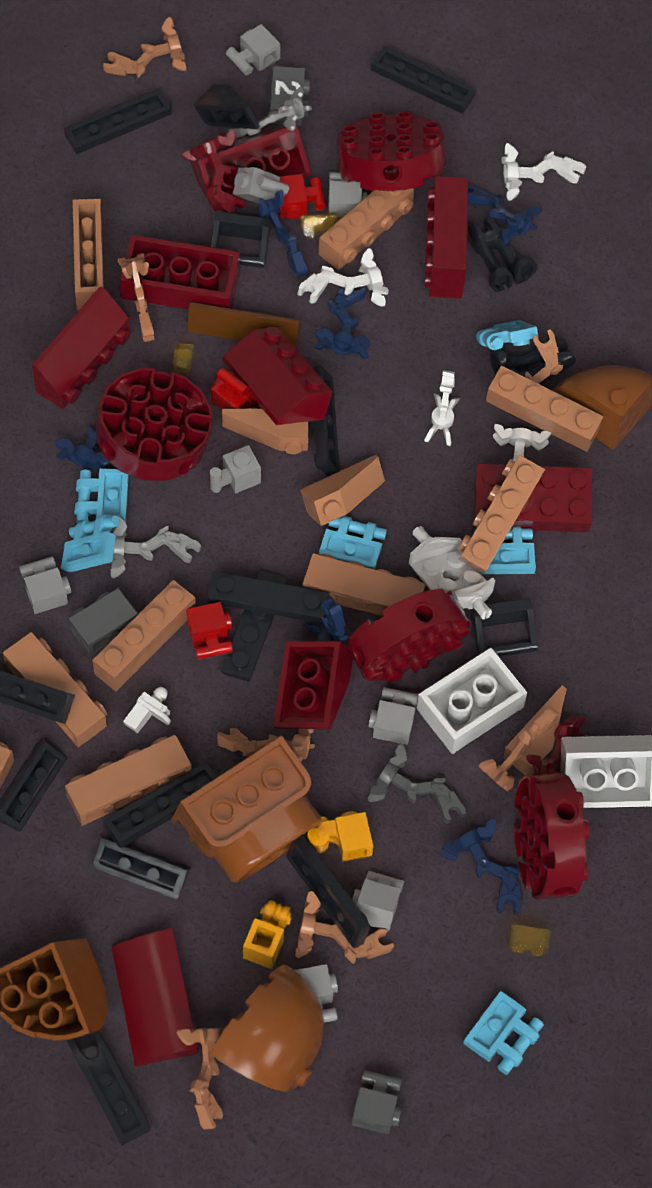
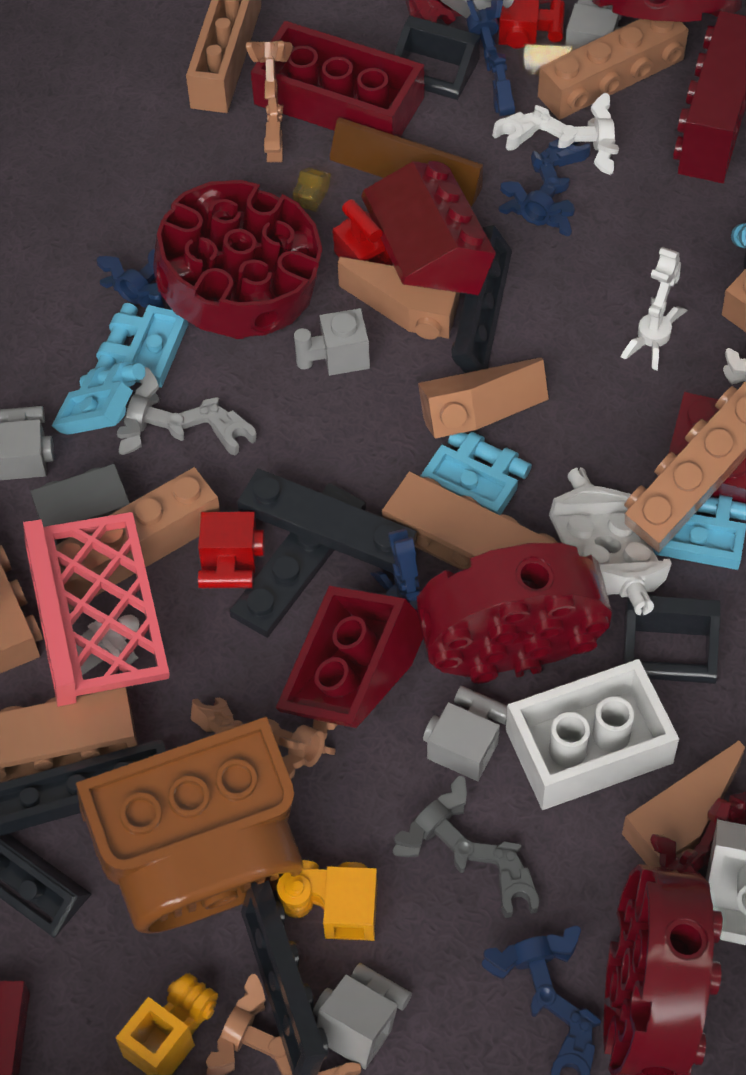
camera: 20 degrees right, 5 degrees down
(81, 349) = (171, 148): dark red slope -> none
(118, 698) = (58, 622): none -> coral fence
(498, 773) = (685, 792): nougat piece -> none

